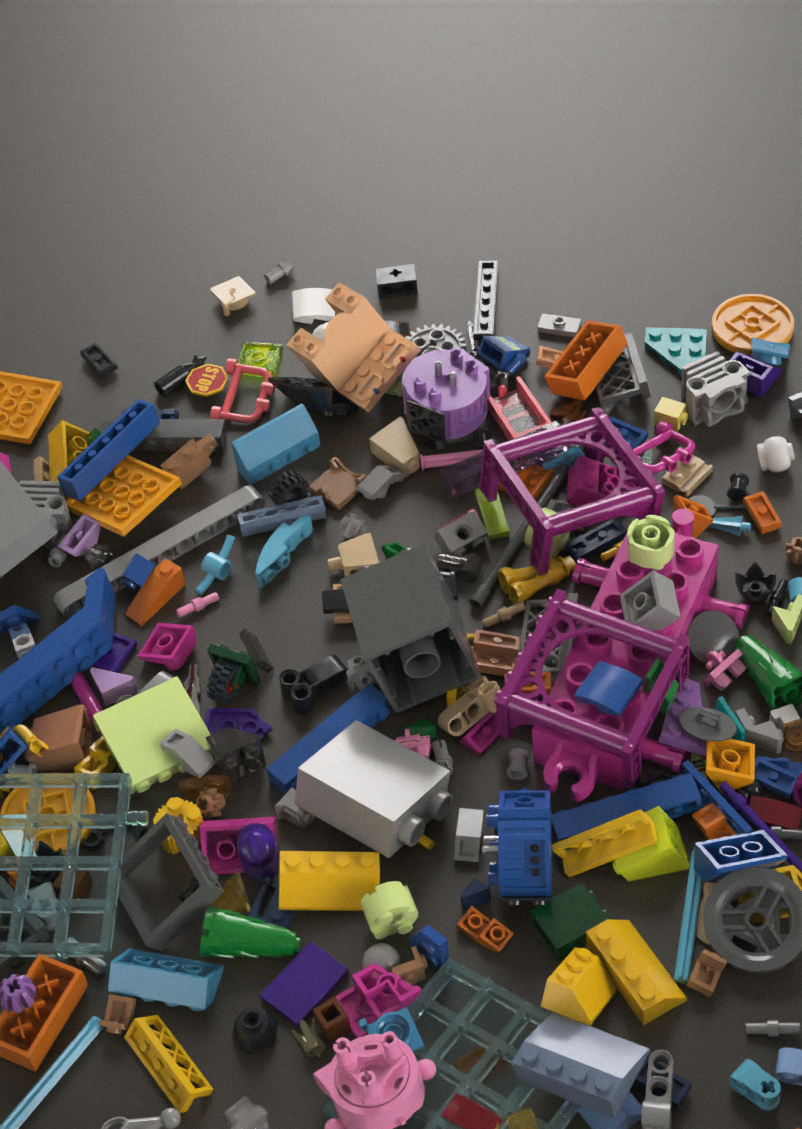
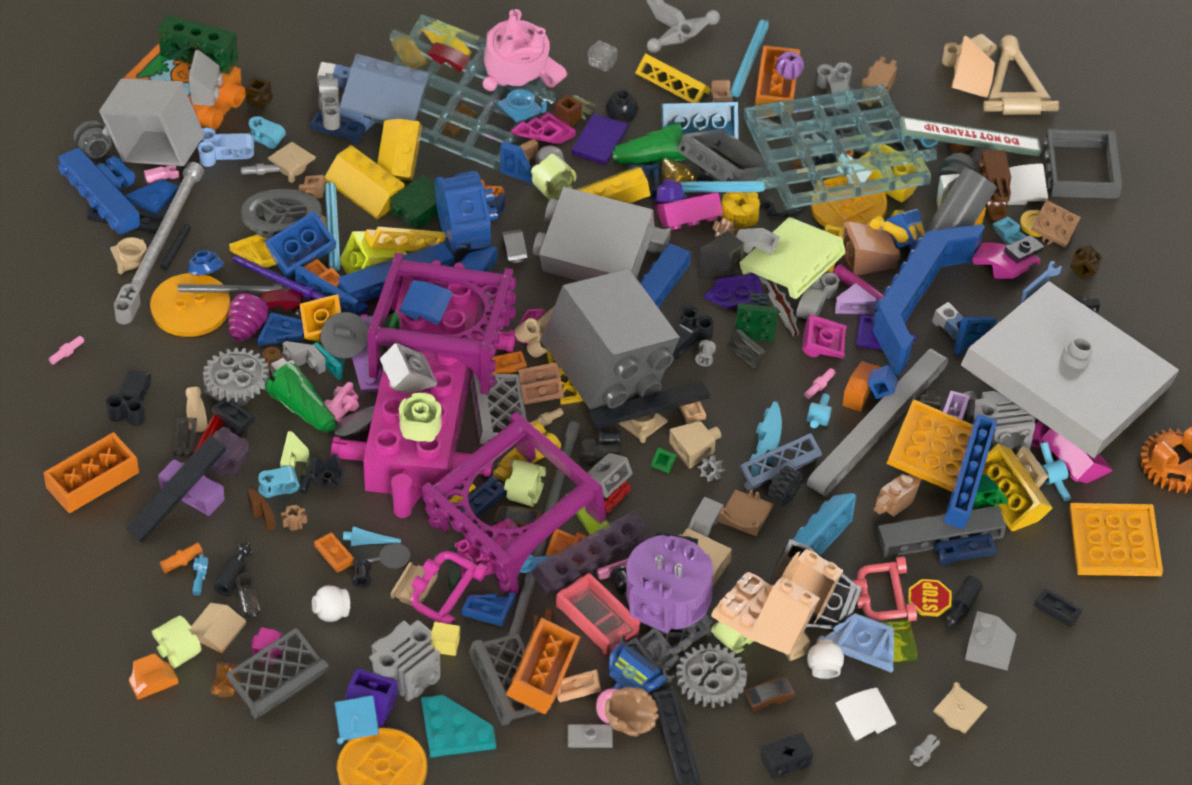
camera: 155 degrees right, 0 degrees up
(23, 470) = (1056, 471): none -> medium azure piece
(178, 341) = (990, 641): none -> light grey slope
(194, 823) = (725, 186): none -> medium azure axle
(276, 352) = (865, 641): none -> light blue wing
(302, 655) = (706, 350): none -> light grey bush
(441, 755) = (552, 292): light grey pin -> none
(526, 328) = (627, 710): none -> medium nougat hair
(701, 516) = (399, 518): orange slope -> none
(727, 1027) = (291, 160): none -> tan hat

